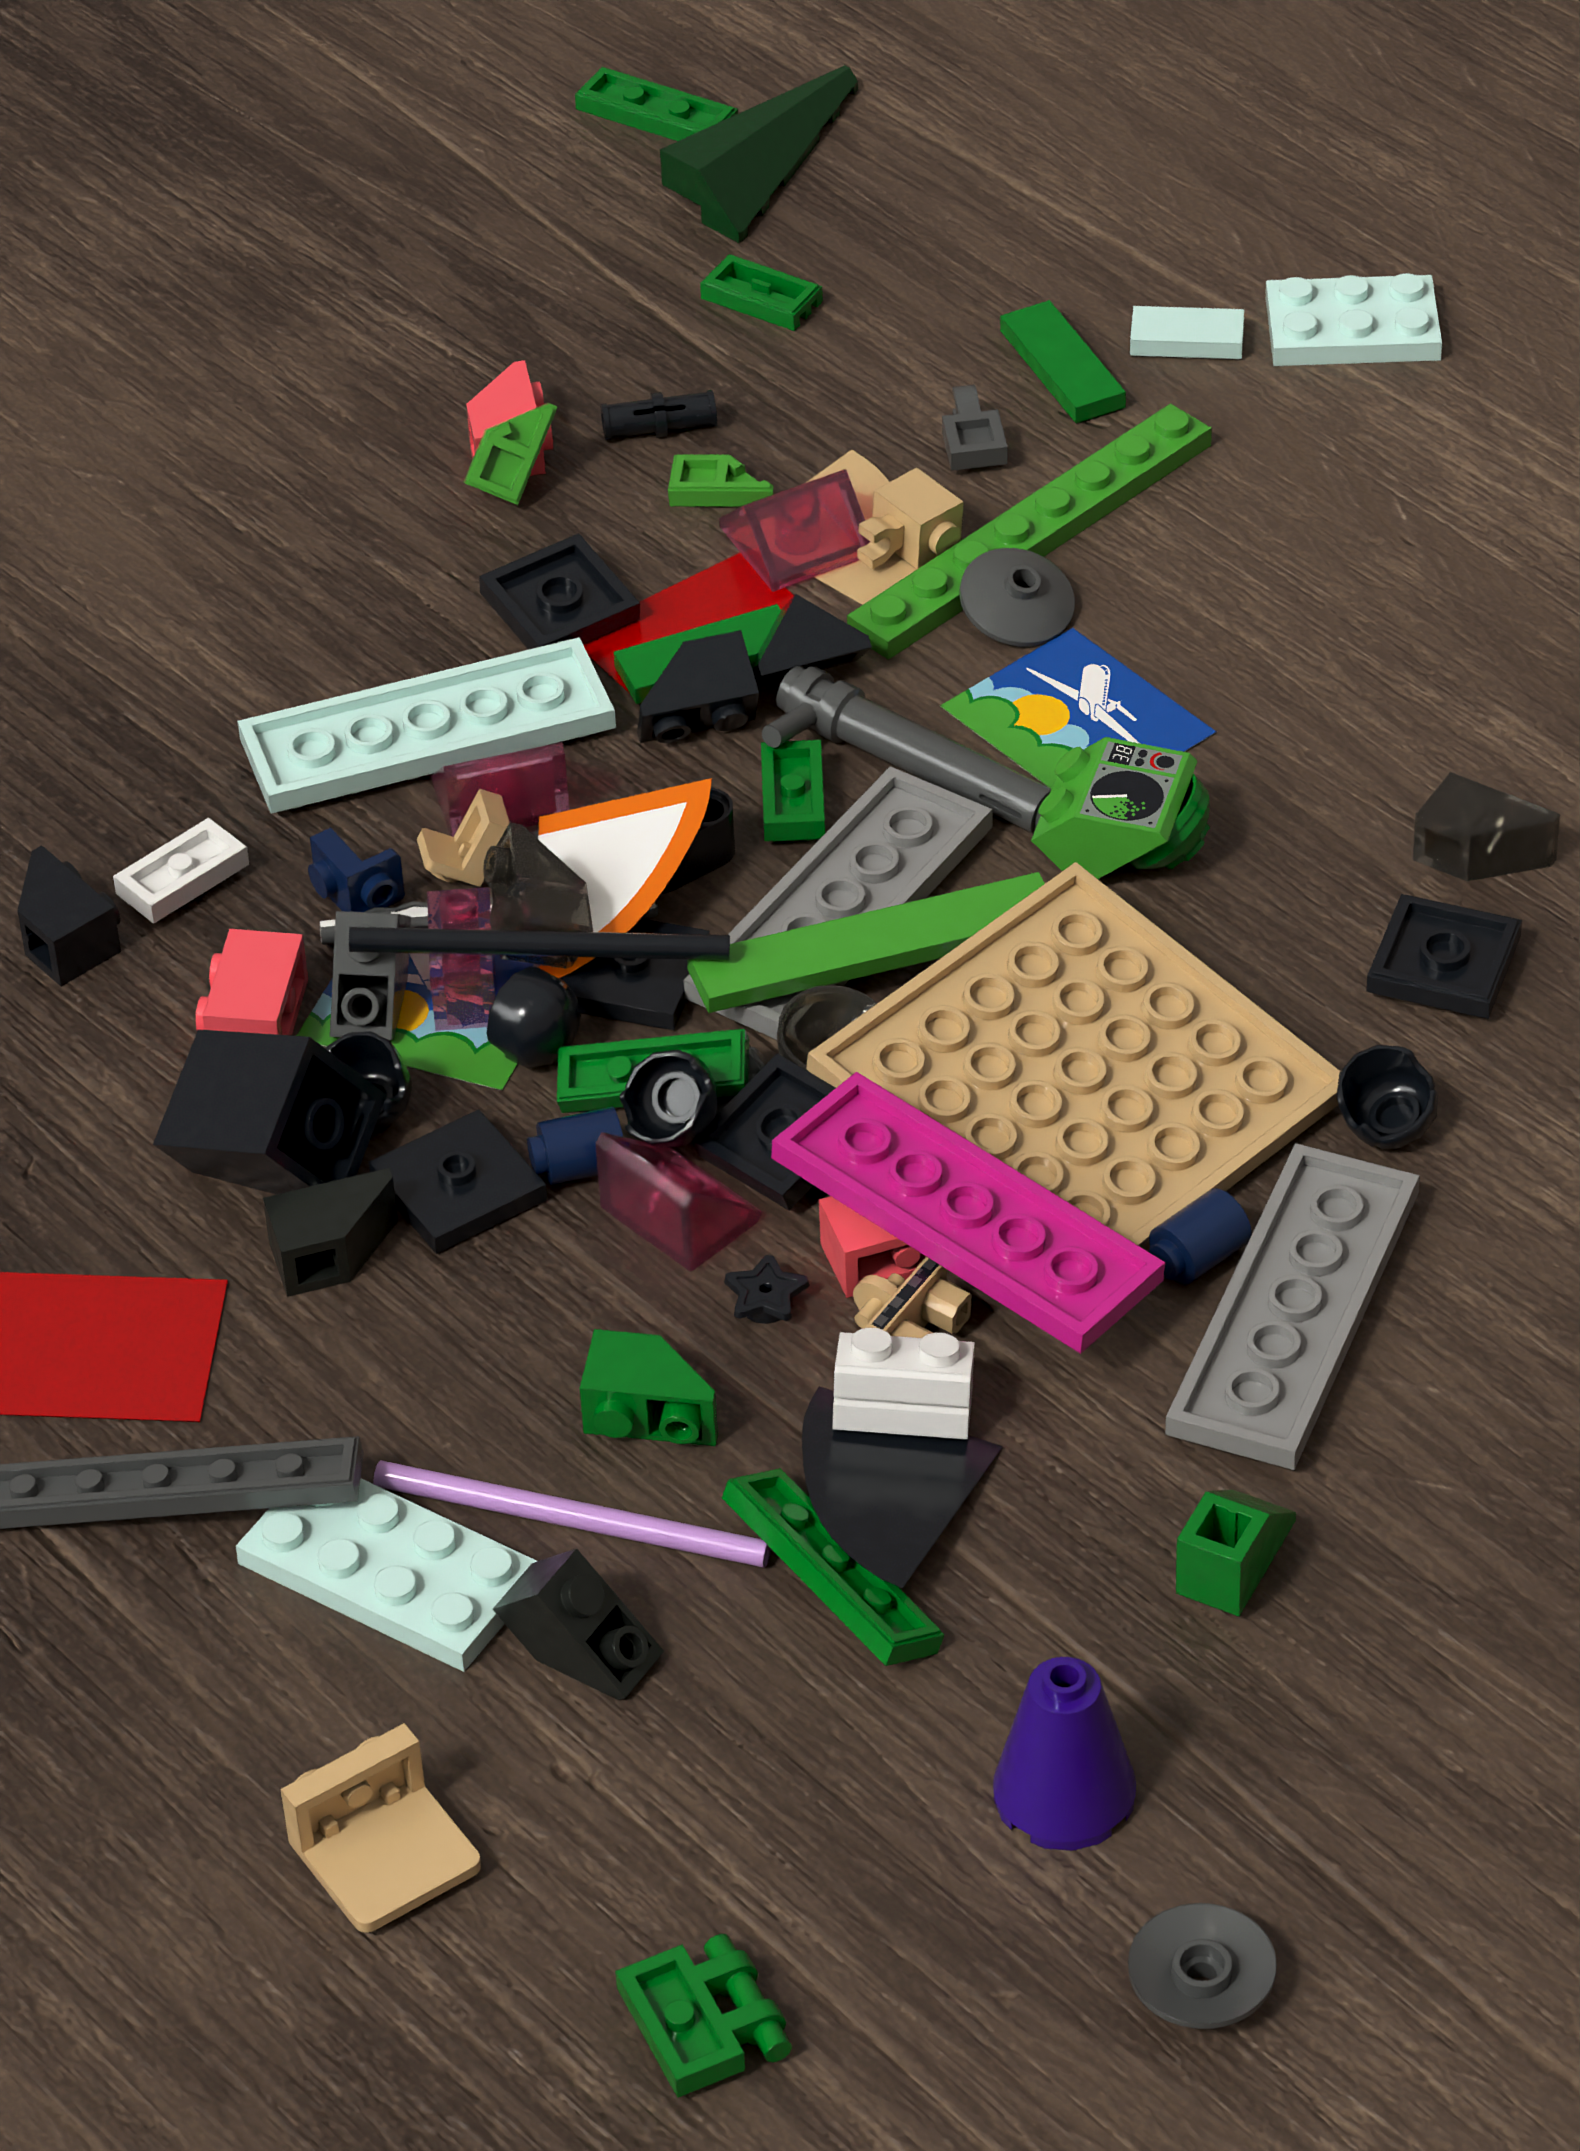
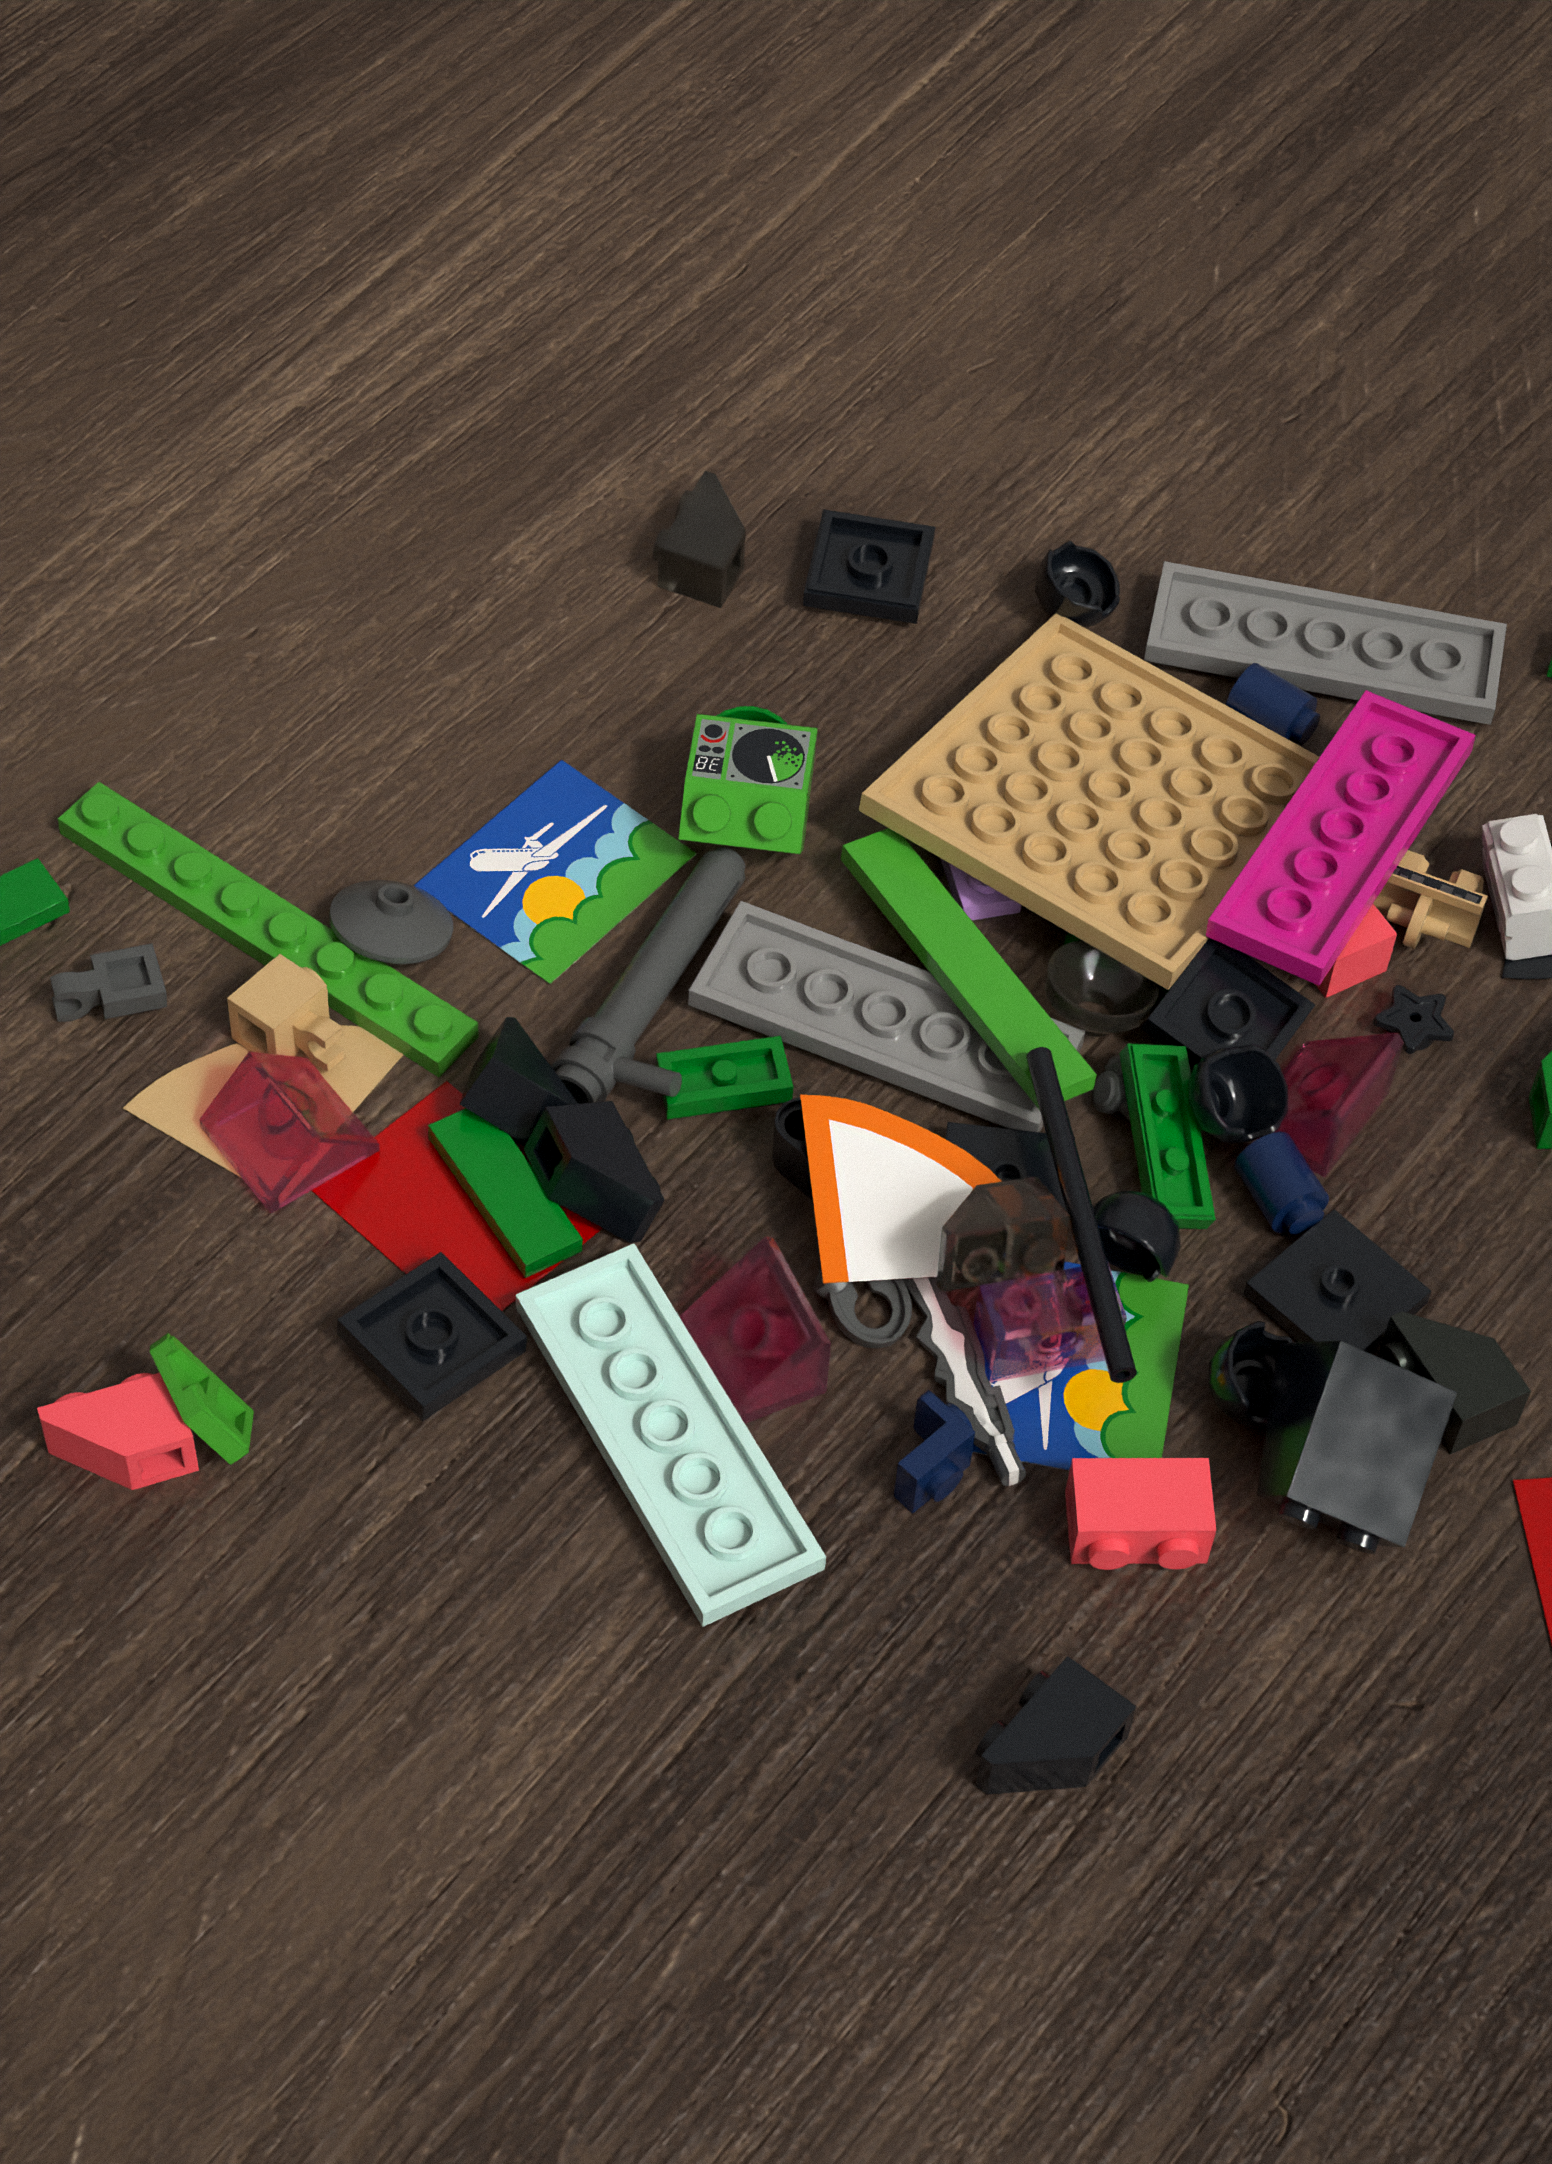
camera: 105 degrees left, 10 degrees up
(181, 870) = (948, 1632): white plate -> none
(367, 985) = (1074, 1407): dark grey slope -> none
(464, 854) = (869, 1343): tan bracket -> none
(658, 415) = (86, 1289): black pin -> none
(713, 482) = (201, 1223): bright green tile -> none

